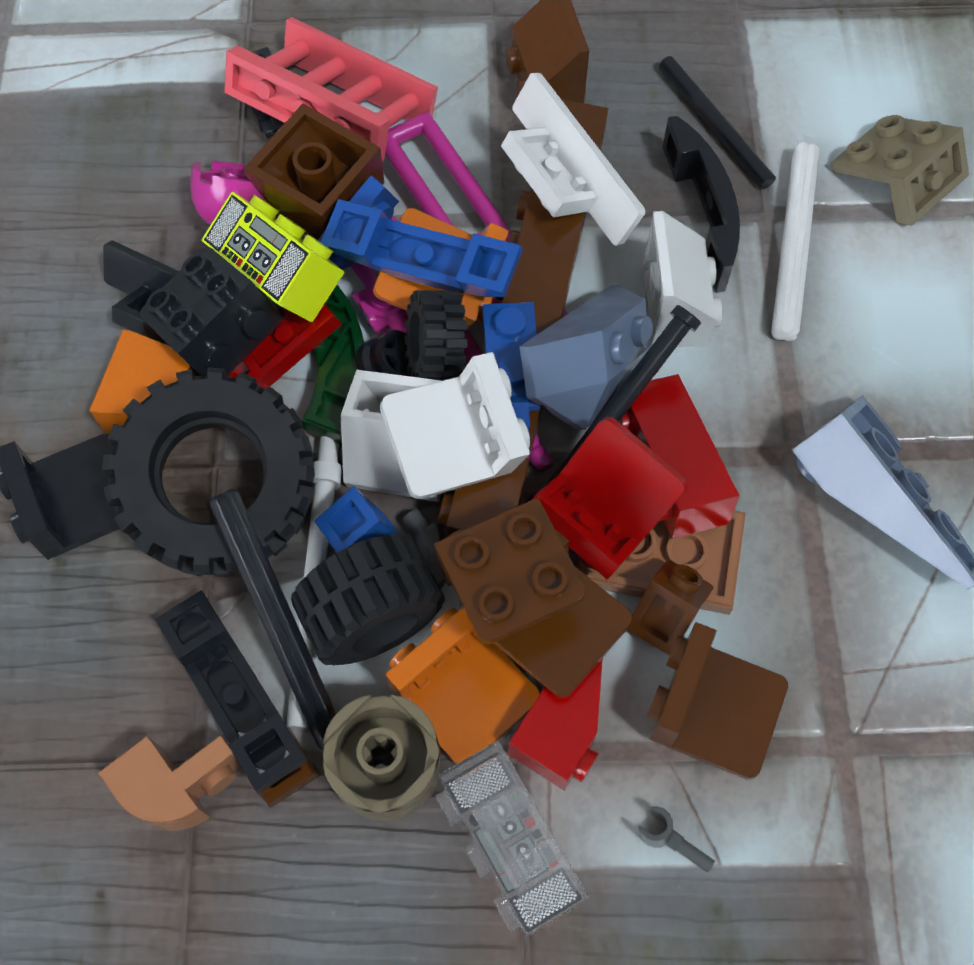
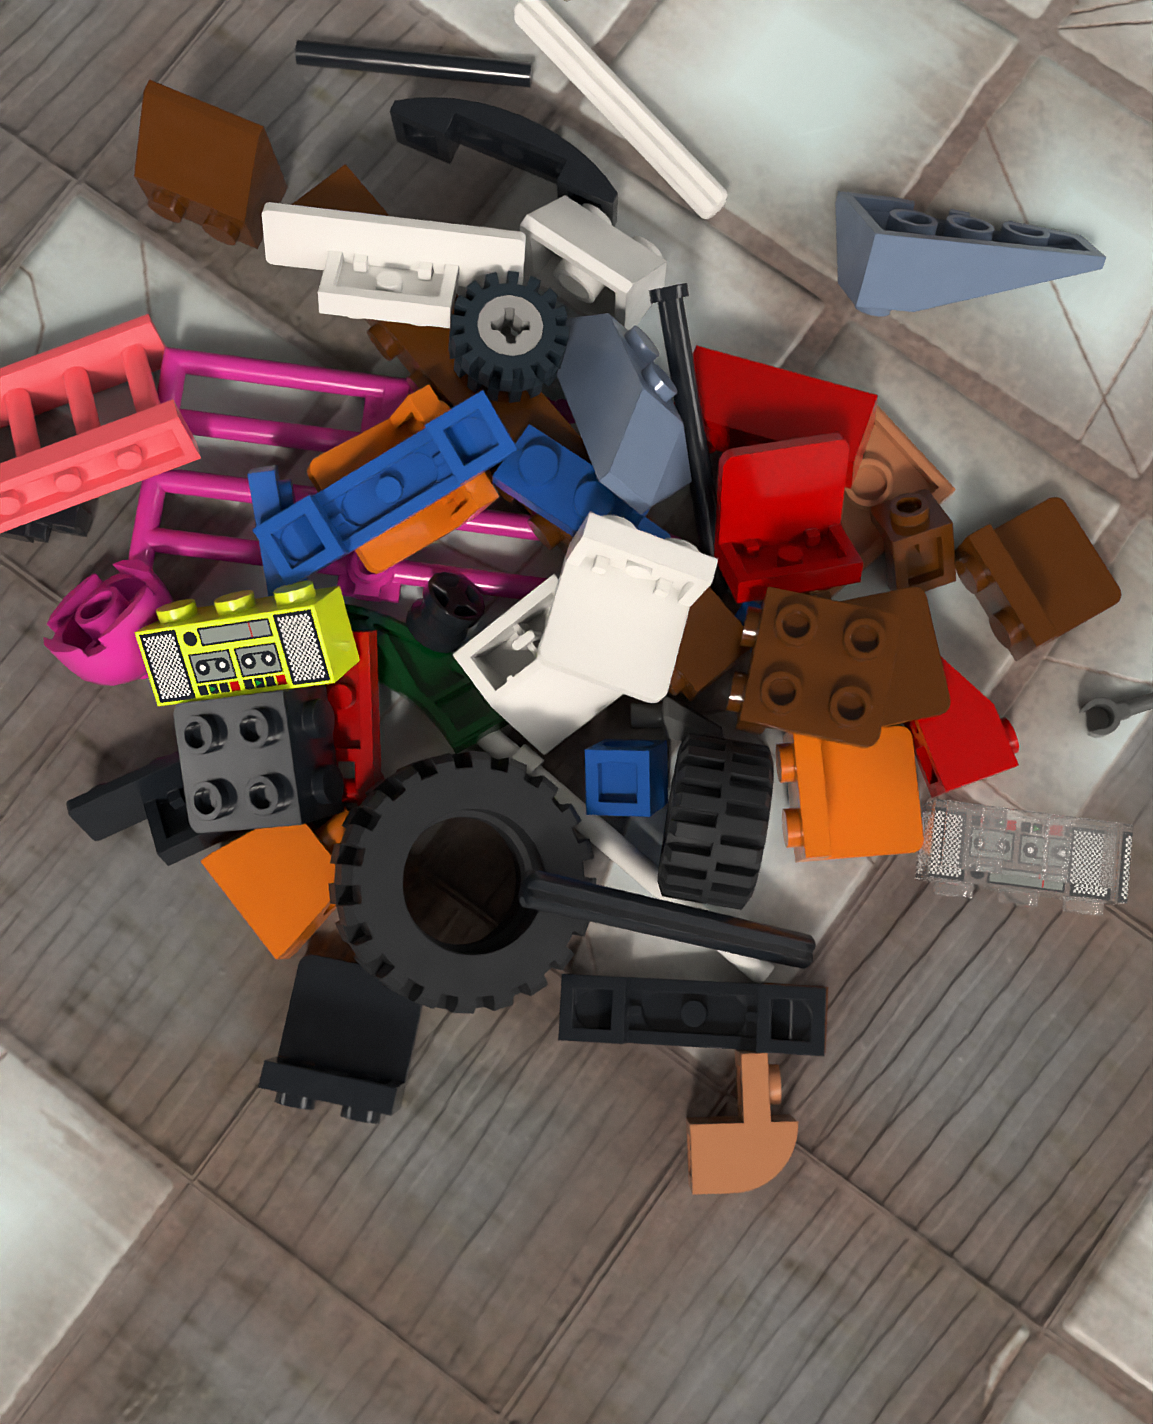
camera: 50 degrees left, 15 degrees up
(311, 167) = (177, 526): reddish brown slope -> none
(385, 725) = (909, 908): dark tan brick -> none
(435, 335) = (483, 549): black tyre -> none
(577, 272) = (501, 358): none -> black wheel

